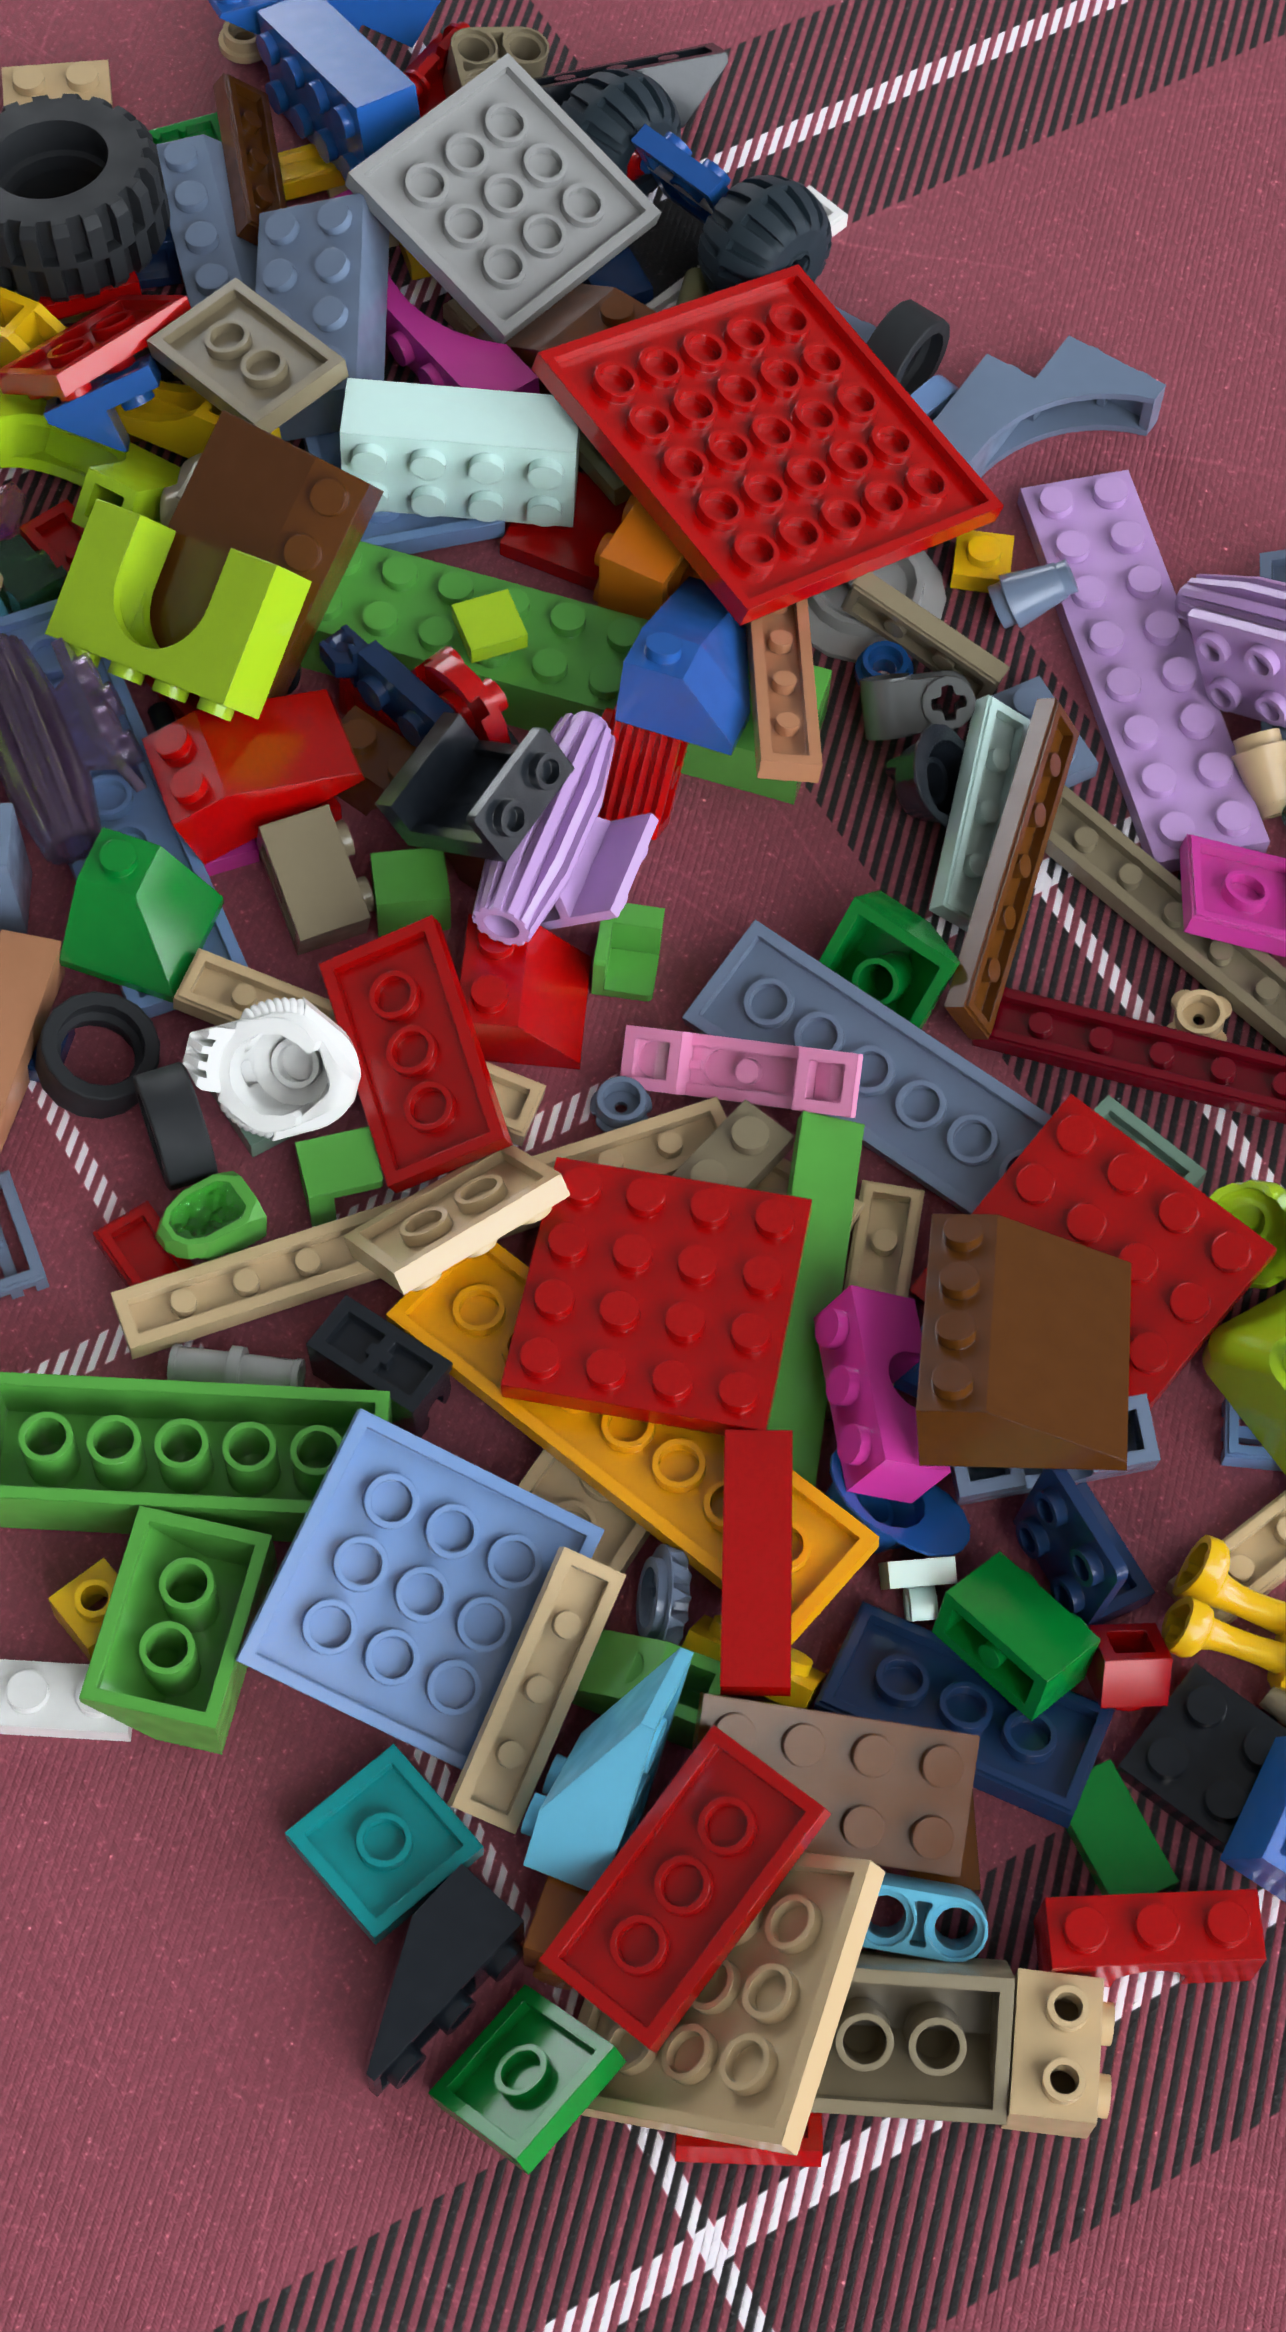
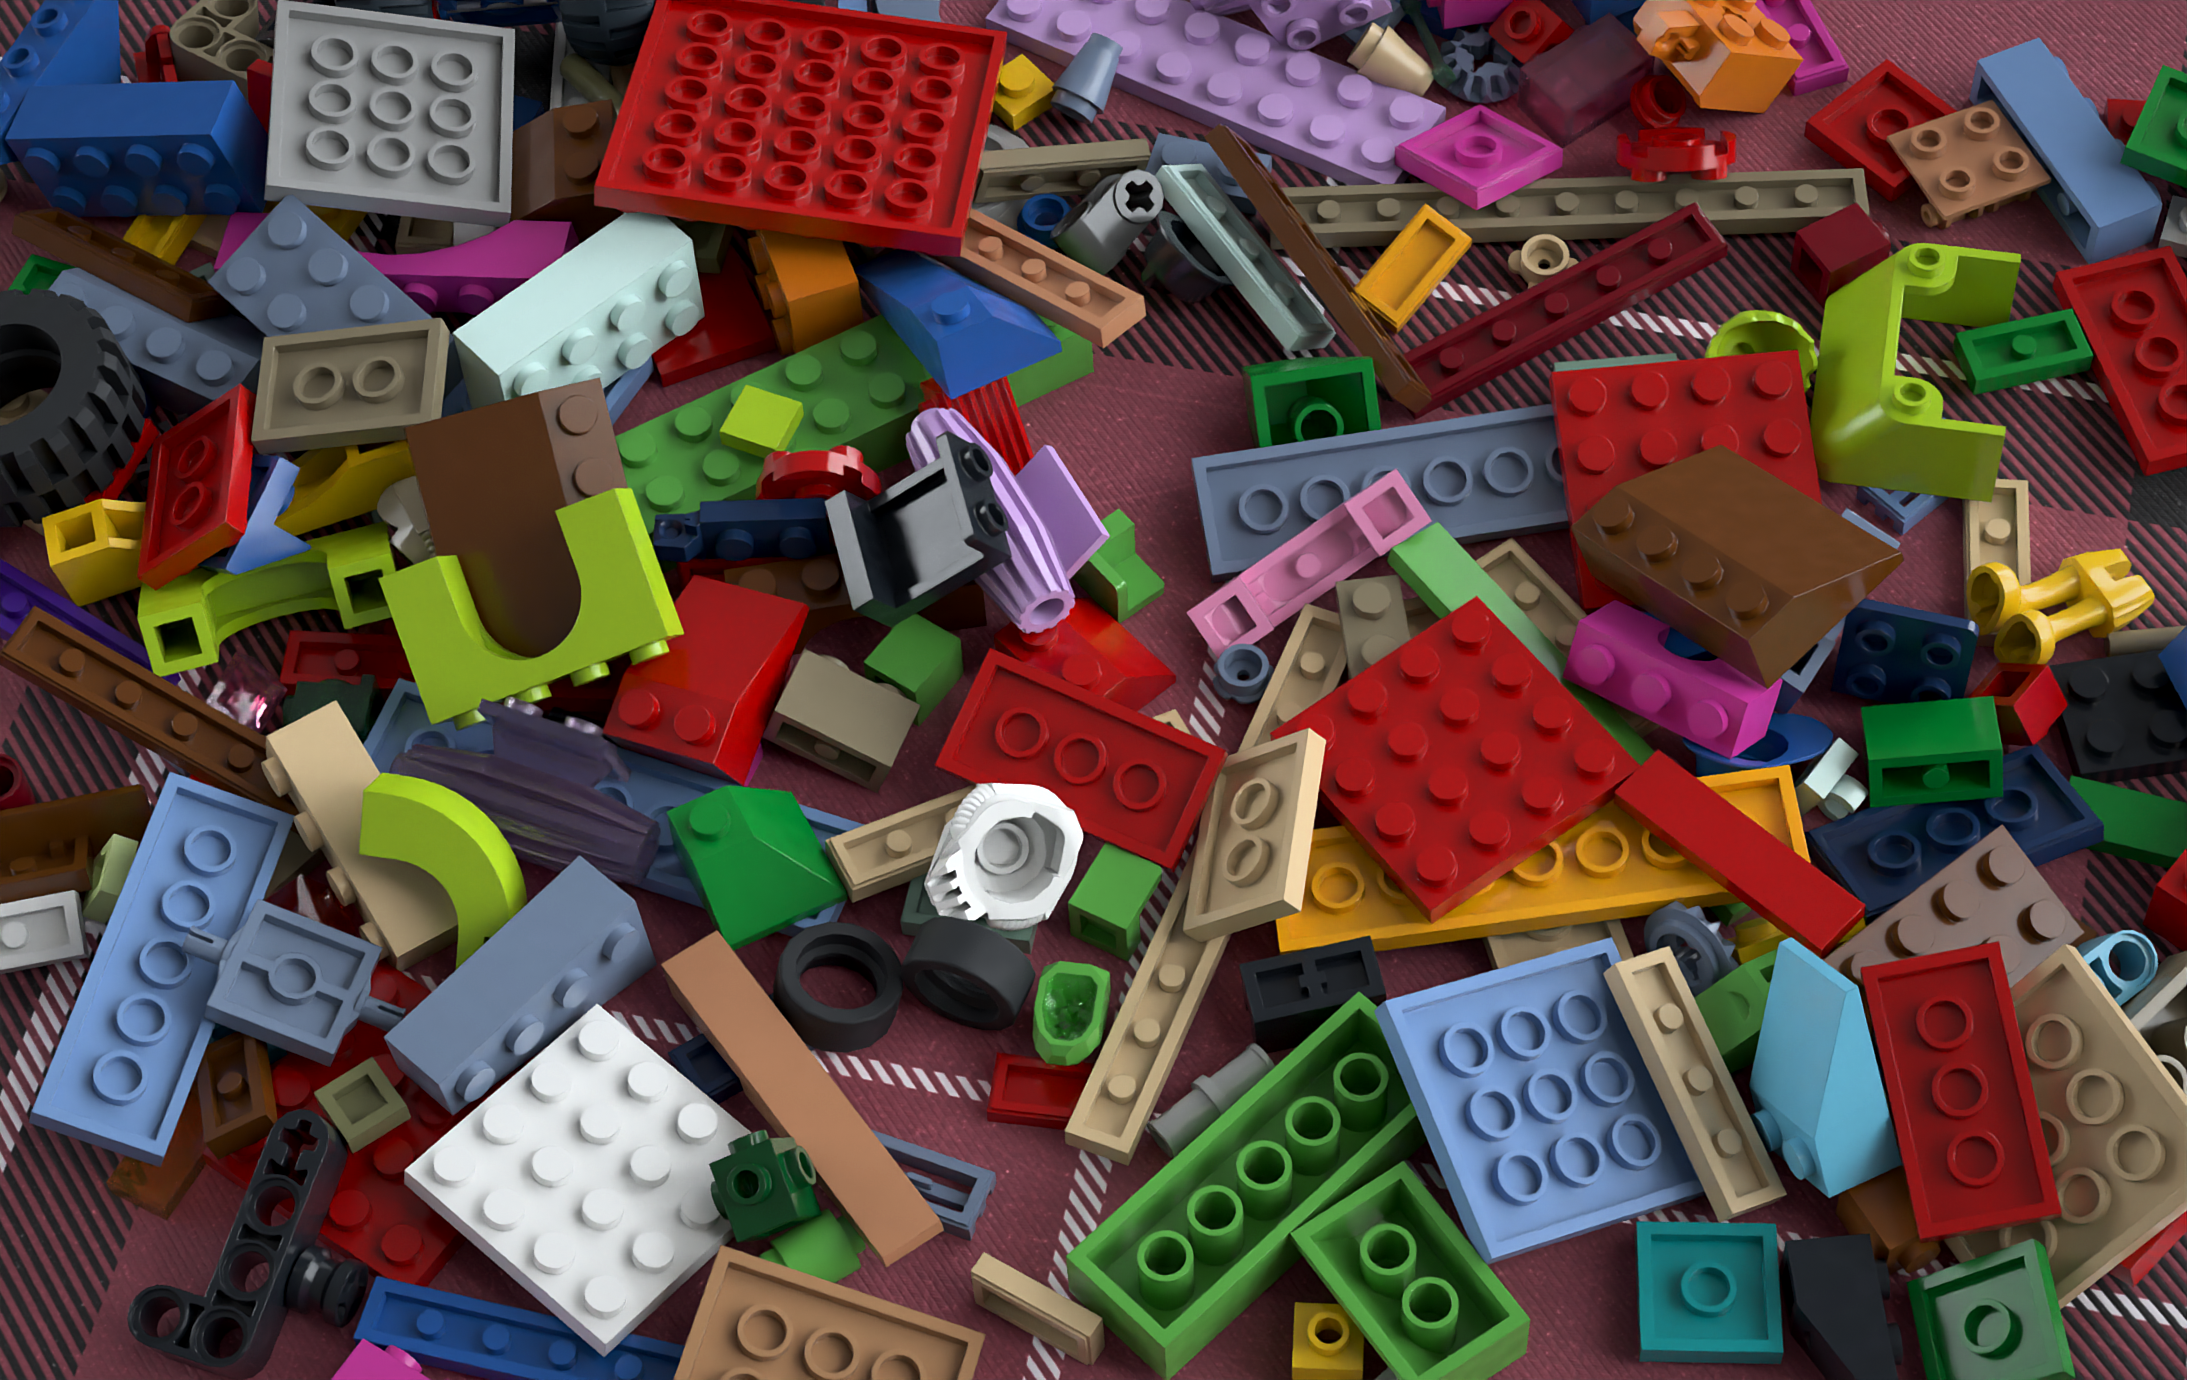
camera: 40 degrees left, 5 degrees down
(1092, 932) = (1412, 267): none -> light orange tile

